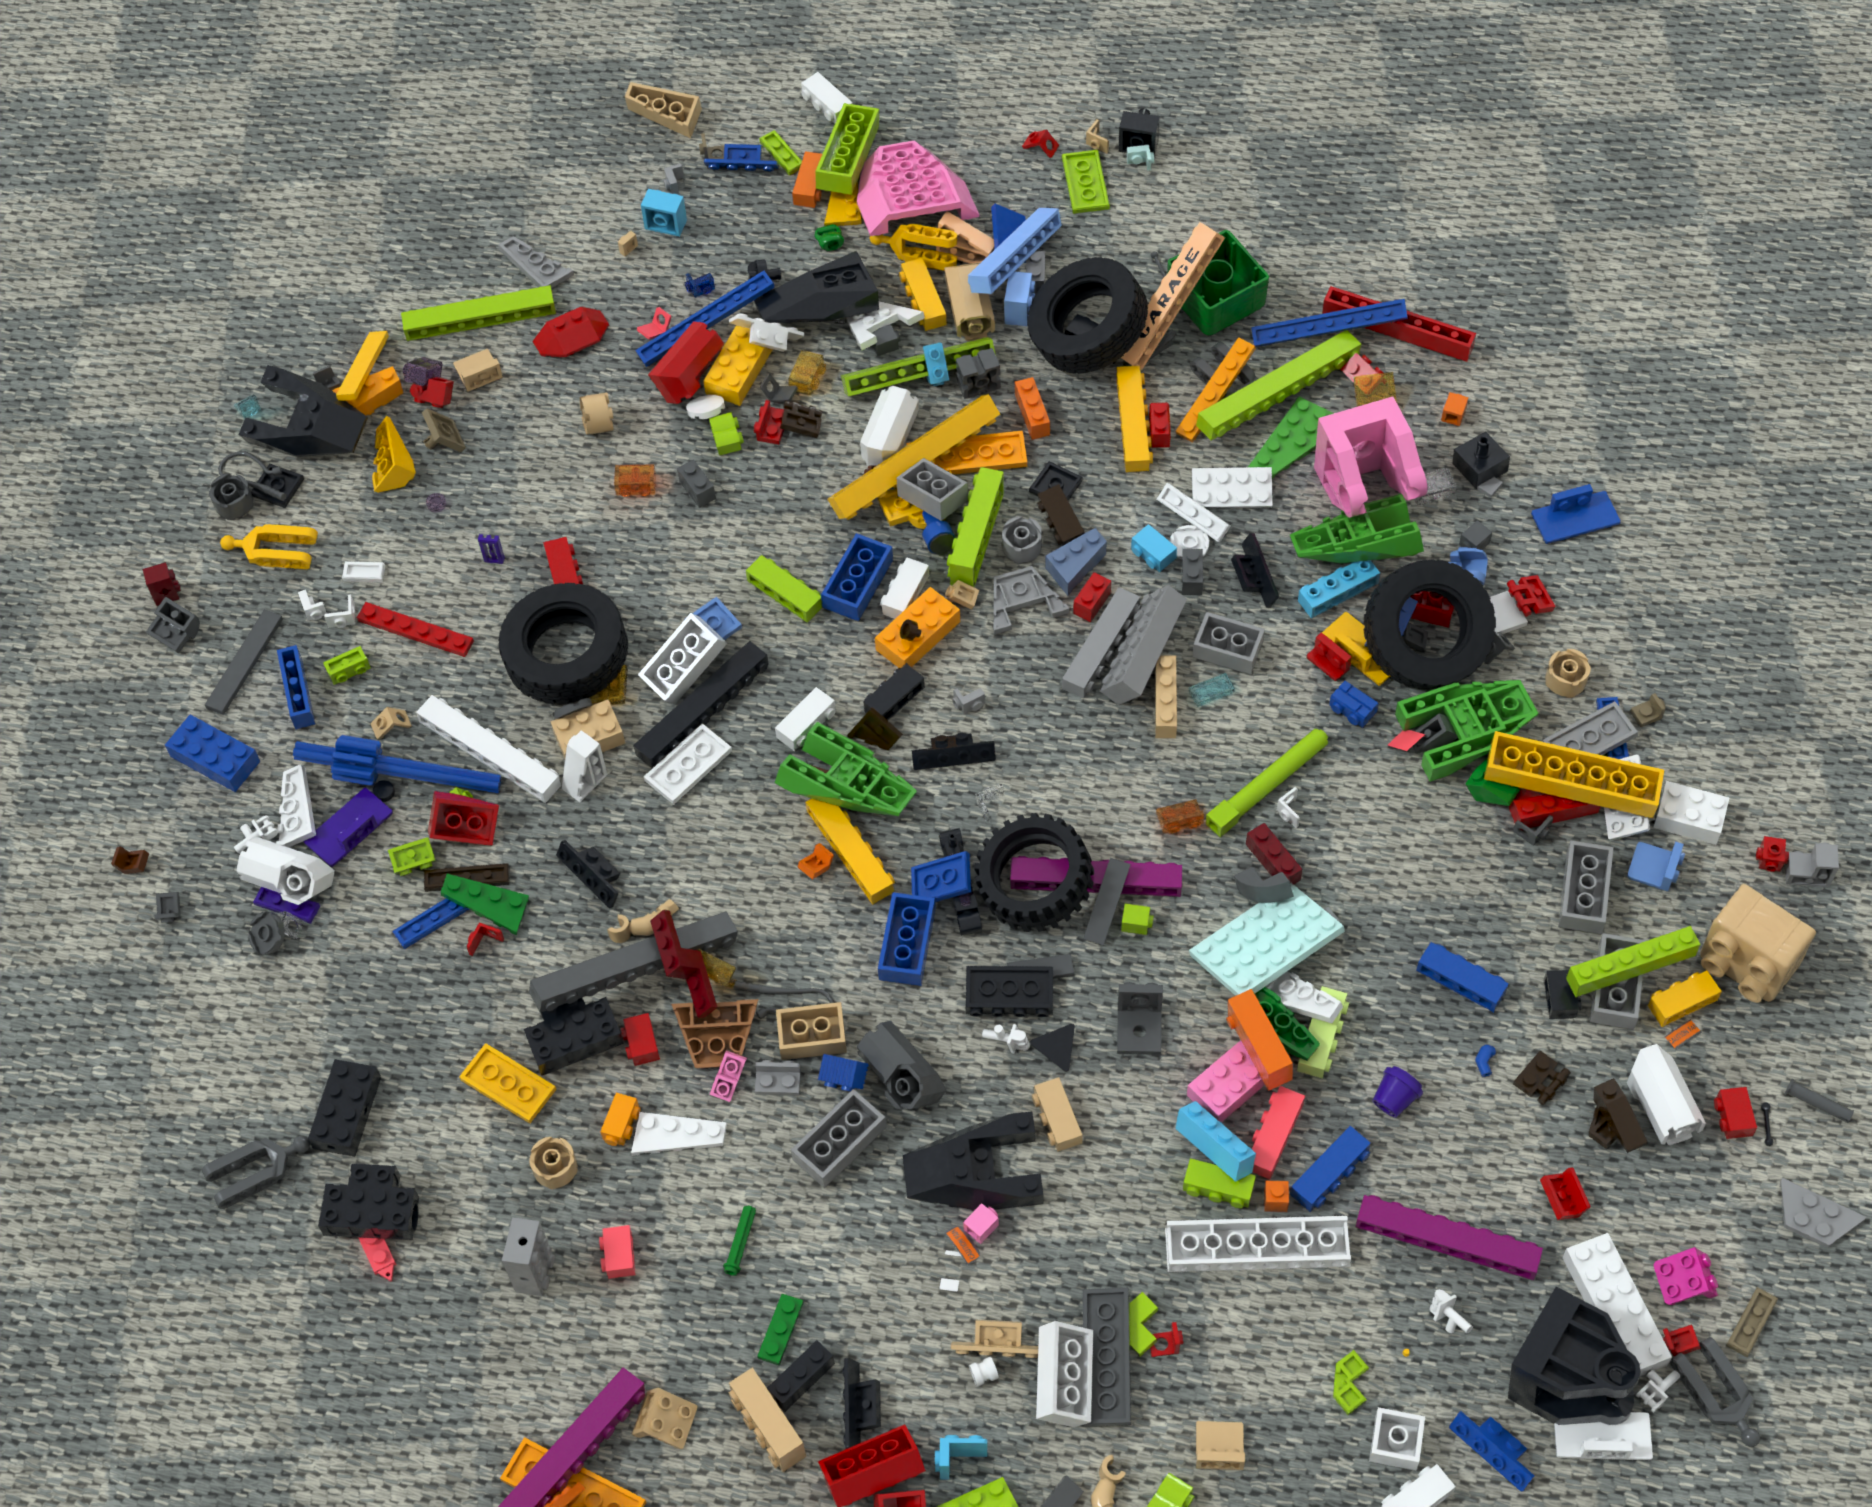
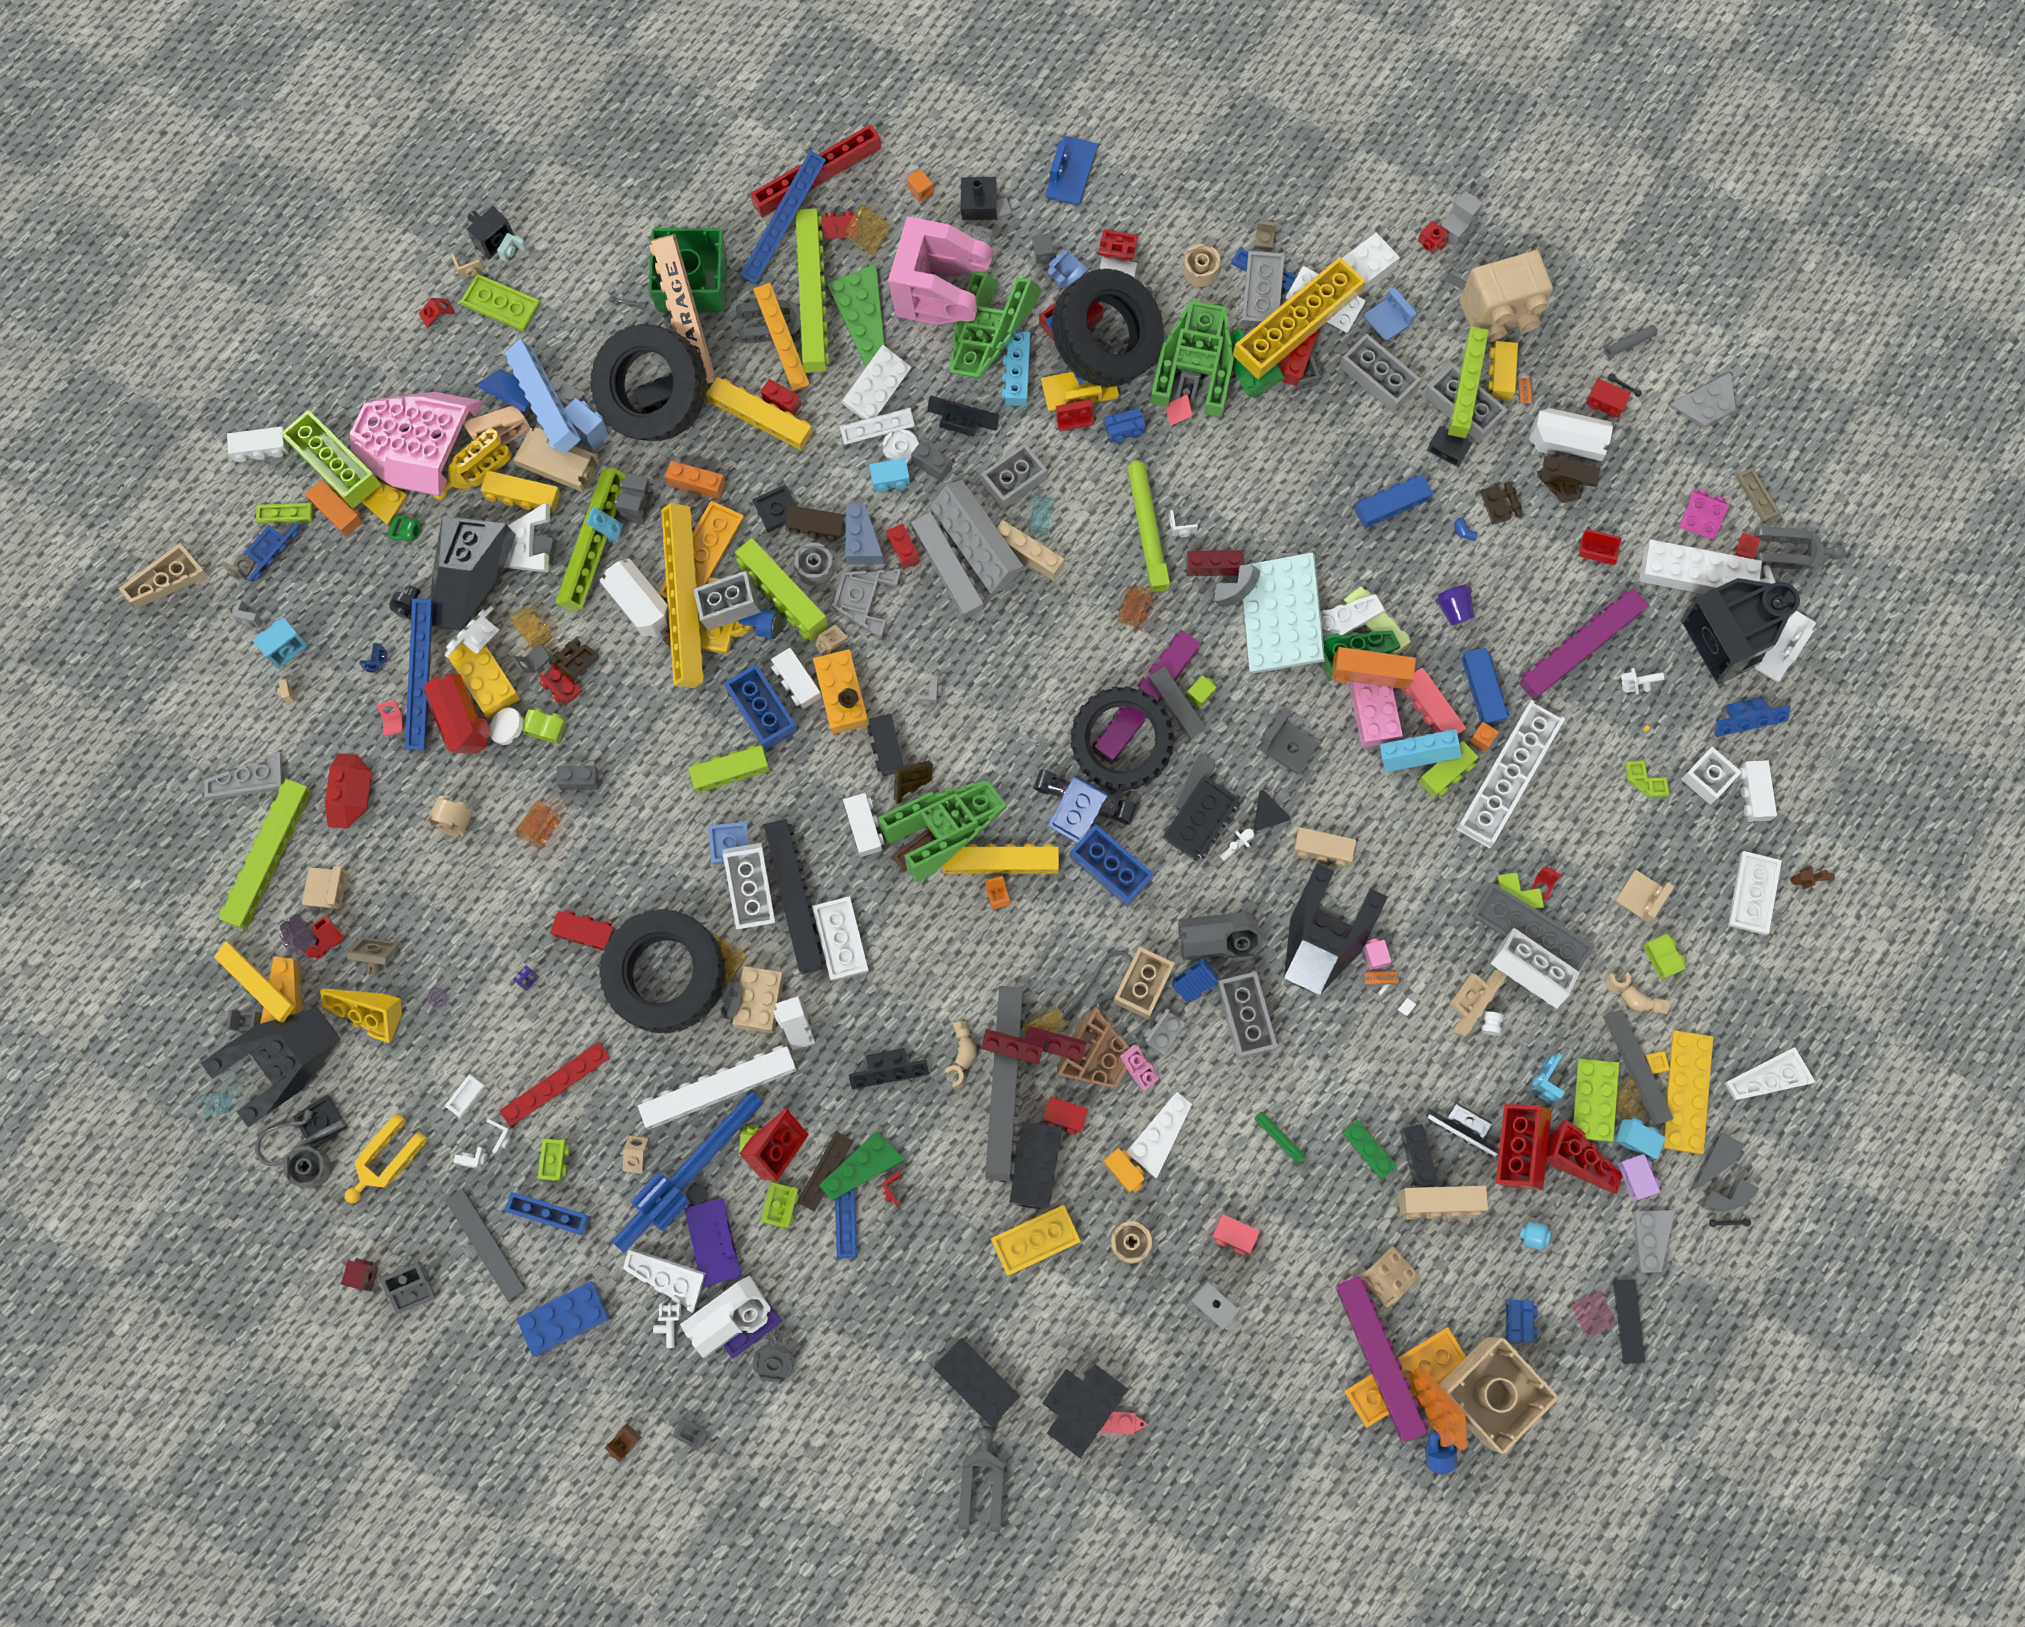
camera: 60 degrees left, 15 degrees up
(953, 751) = (966, 731): black bracket -> none

